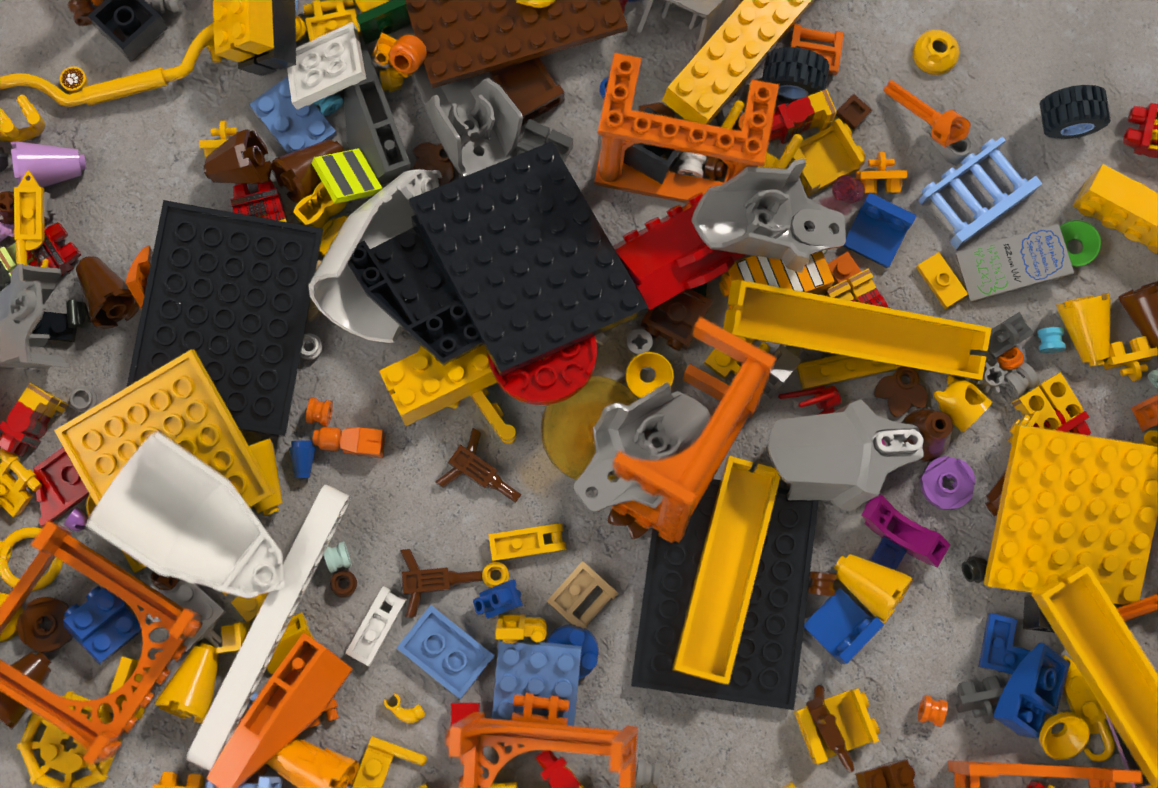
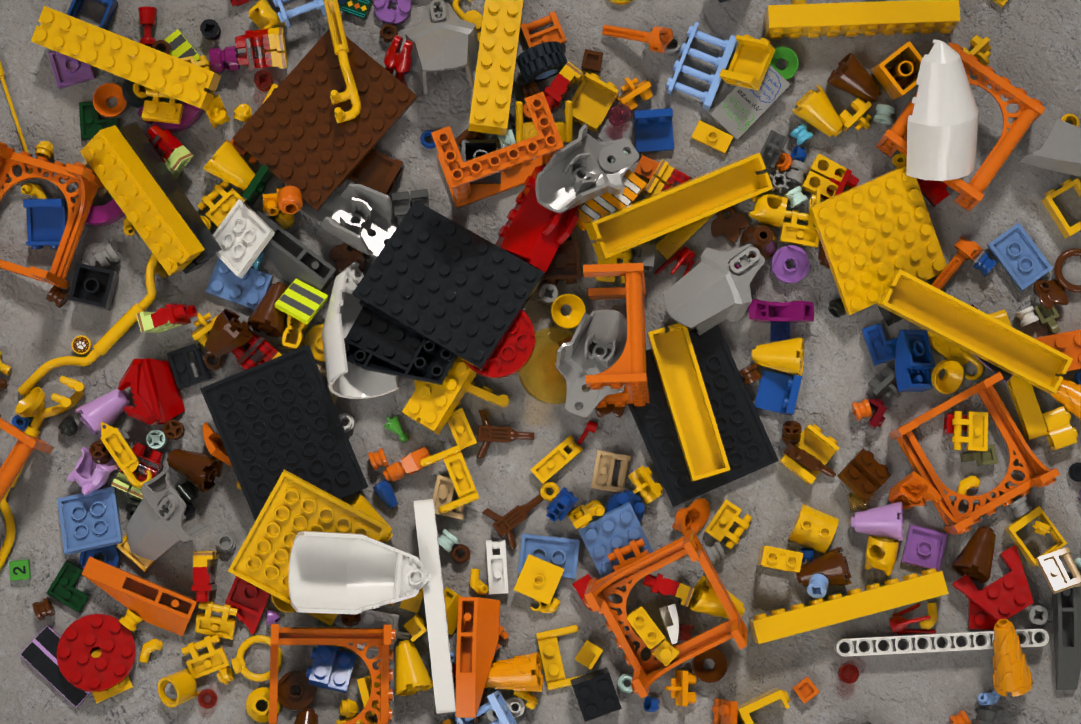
camera: 25 degrees left, 5 degrees up
(78, 231) = (154, 437): none -> light aqua wheel
(92, 685) = (348, 708): none -> yellow plate
(108, 229) = (172, 426): none -> reddish brown wheel
(115, 176) = (154, 391): none -> red helmet
(167, 172) = (183, 369): none -> black plate
(182, 102) = (166, 318): none -> red hips
(200, 183) = (207, 360): none -> reddish brown plate
(339, 632) = (476, 584): none -> yellow arm
(363, 385) = (394, 426): none -> bright green piece
(368, 502) = (443, 494): none -> tan plate
(399, 488) = (459, 475): none -> yellow plate
(415, 672) = (539, 579): none -> yellow plate
(437, 437) = (461, 429): none -> yellow plate
(592, 529) = (590, 427): none -> red hand
(613, 638) = (645, 485): none -> yellow hips
(647, 713) = (692, 517): none -> orange piece
(682, 741) = (722, 522): none -> yellow plate
(830, 685) = (791, 432): none -> reddish brown wheel
(946, 733) = (877, 417): none -> dark red bracket
(982, 455) = (799, 234): none -> yellow plate
(1002, 408) = (796, 197): none -> light aqua wheel
(1035, 360) = (799, 154): none -> blue plate
(1039, 218) = (749, 62): none -> yellow panel

